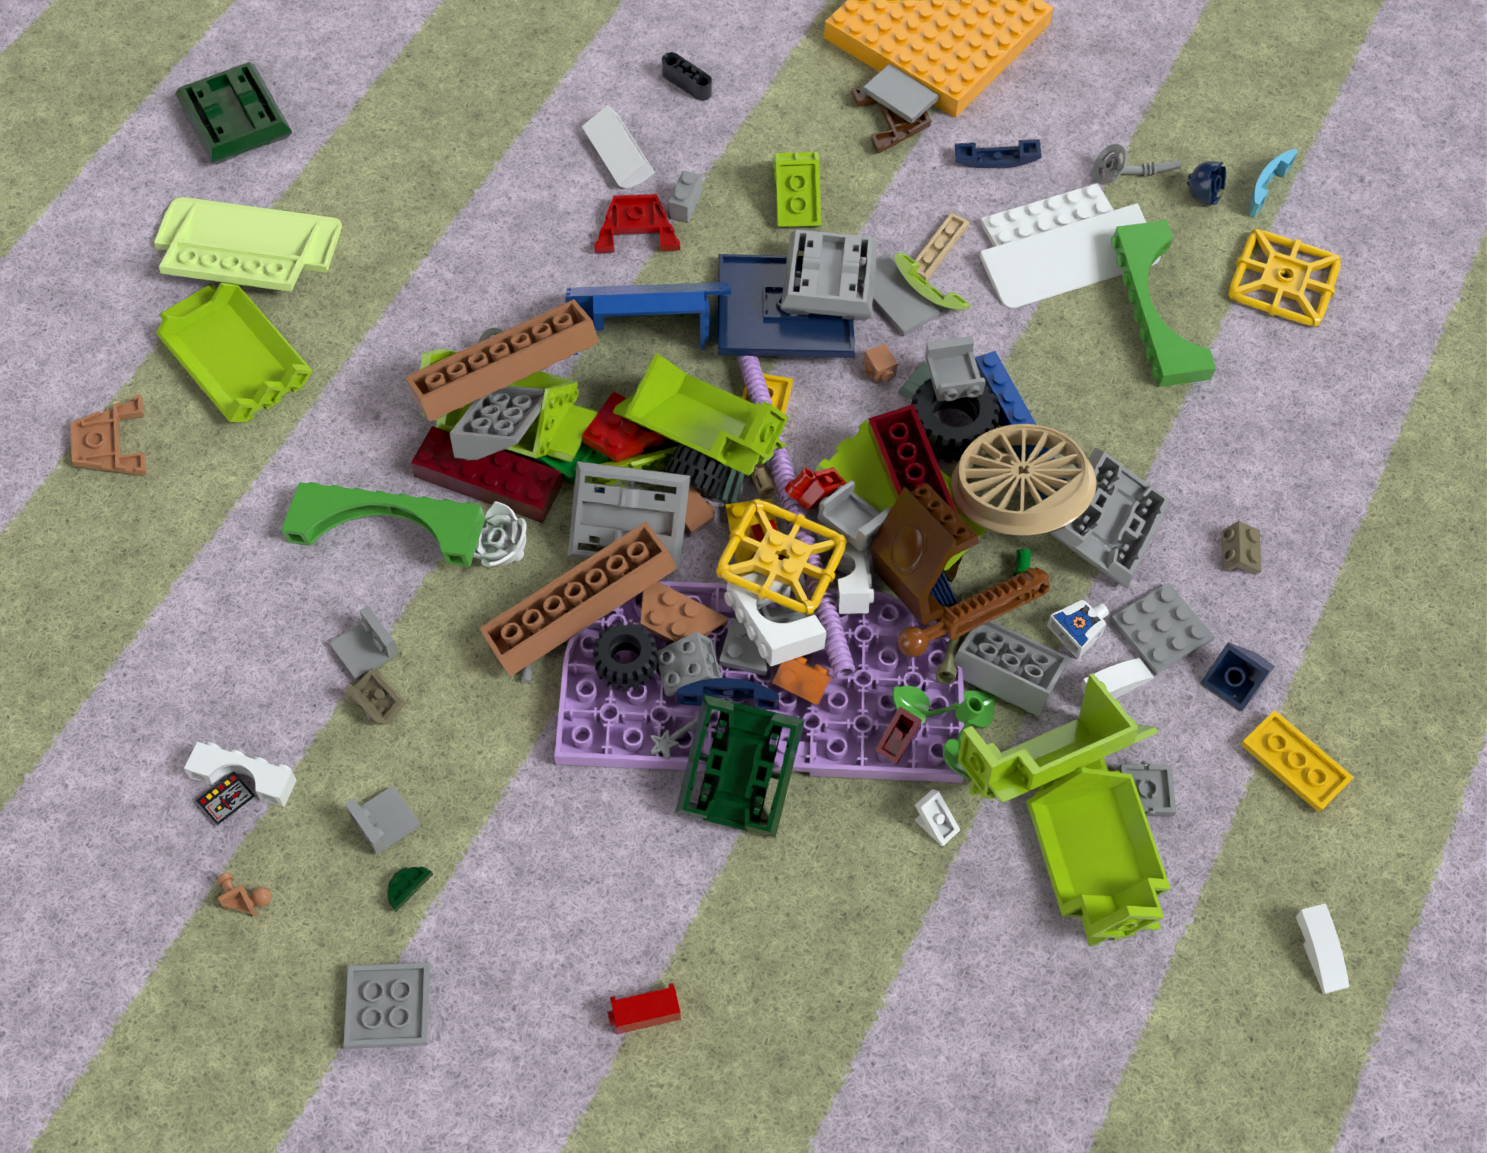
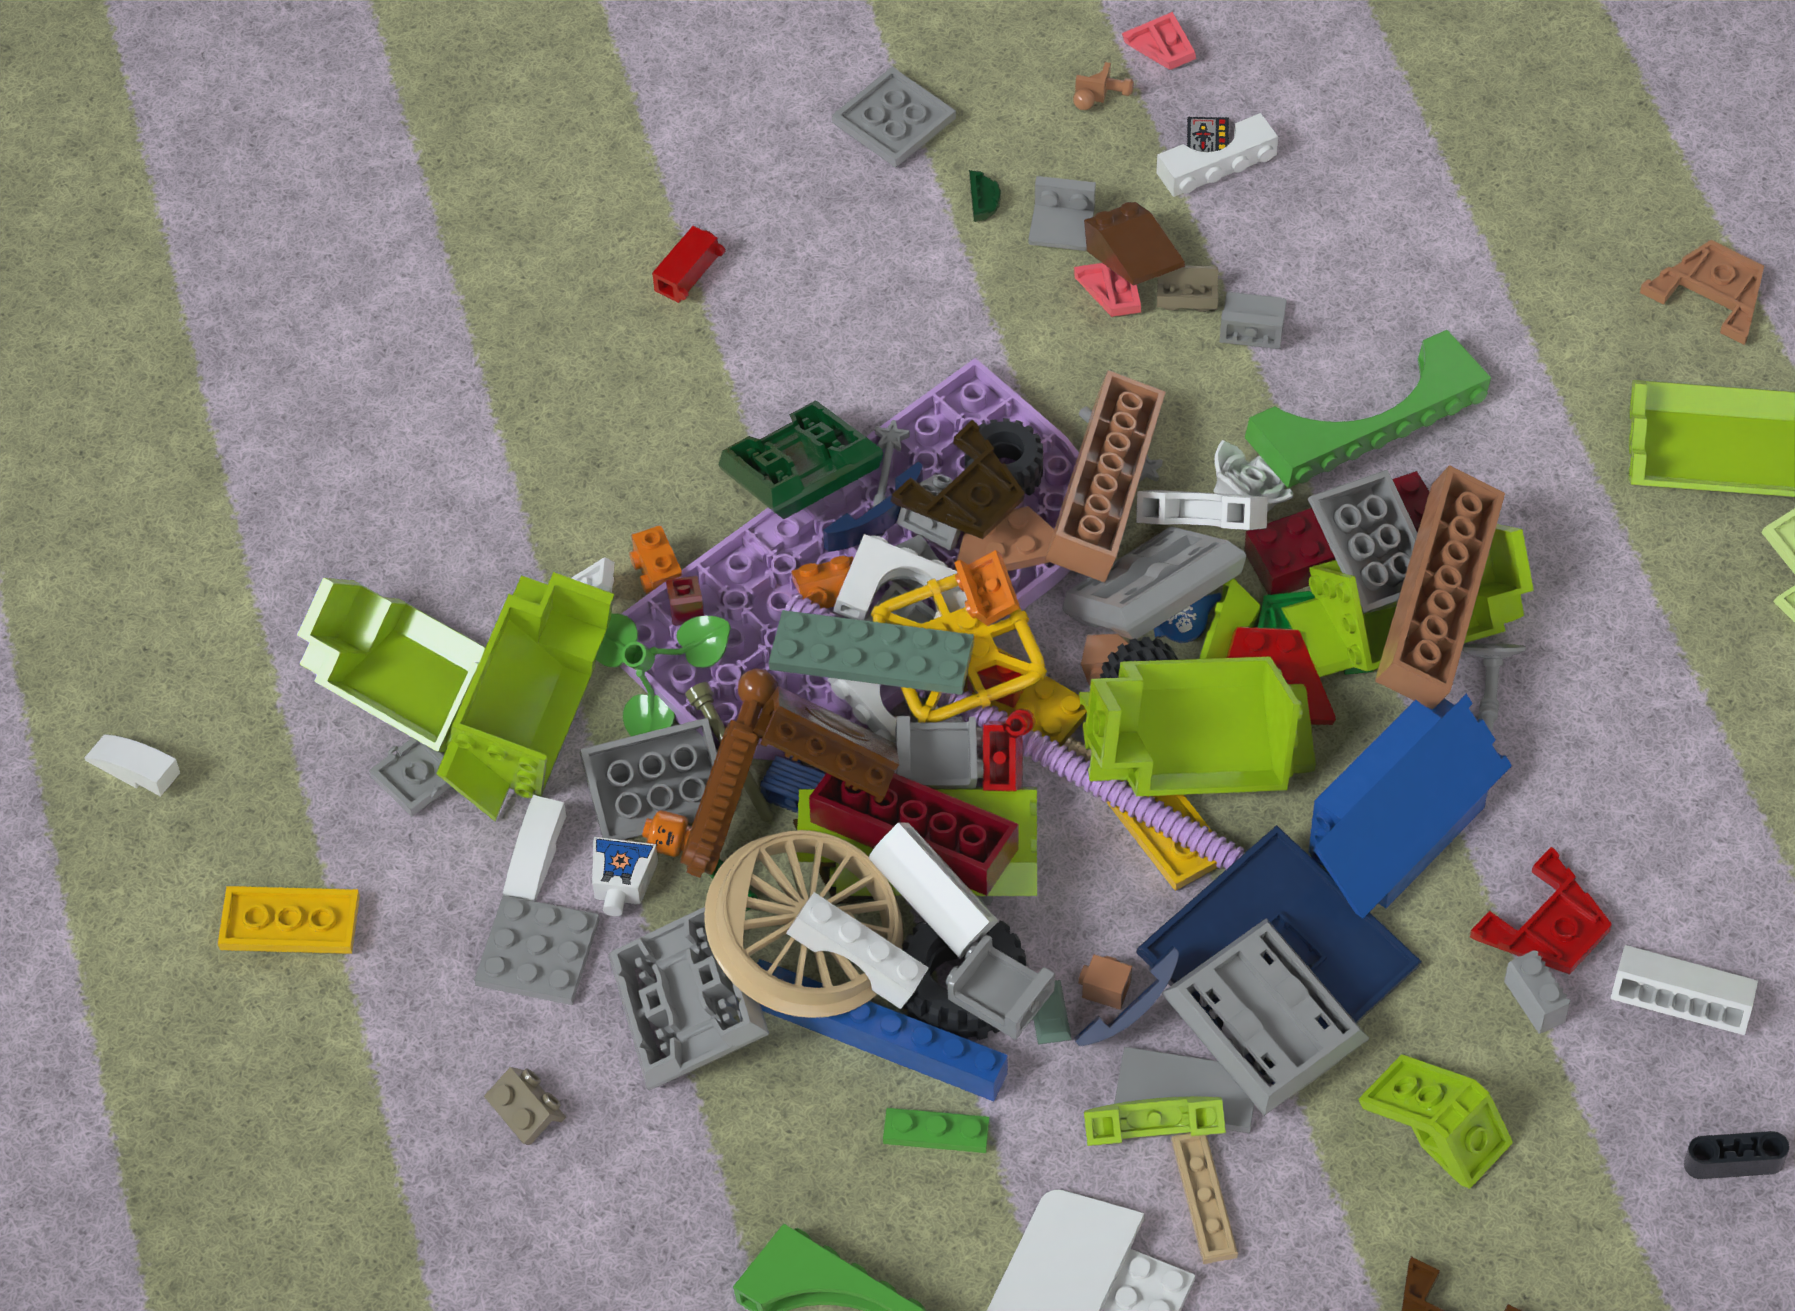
camera: 140 degrees right, 5 degrees down
(158, 896) = (1161, 41): none -> coral wing
(375, 744) = (1131, 243): none -> reddish brown slope
(411, 743) = (1109, 289): none -> coral wing
(539, 511) = (1200, 508): none -> white arch
(677, 626) = (975, 498): none -> dark brown wing
(743, 550) = (987, 588): none -> orange bracket
(841, 582) = (871, 652): none -> sand green plate
(881, 795) = (654, 558): none -> orange bracket
(885, 331) = (1098, 1029): none -> dark blue slope
(945, 425) = (932, 888): none -> white brick
(1029, 438) = (830, 929): none -> white arch
(1034, 622) = (668, 832): none -> orange head
(1036, 372) = (936, 1130): none -> bright green plate
(1237, 675) = (411, 957): dark blue slope -> none

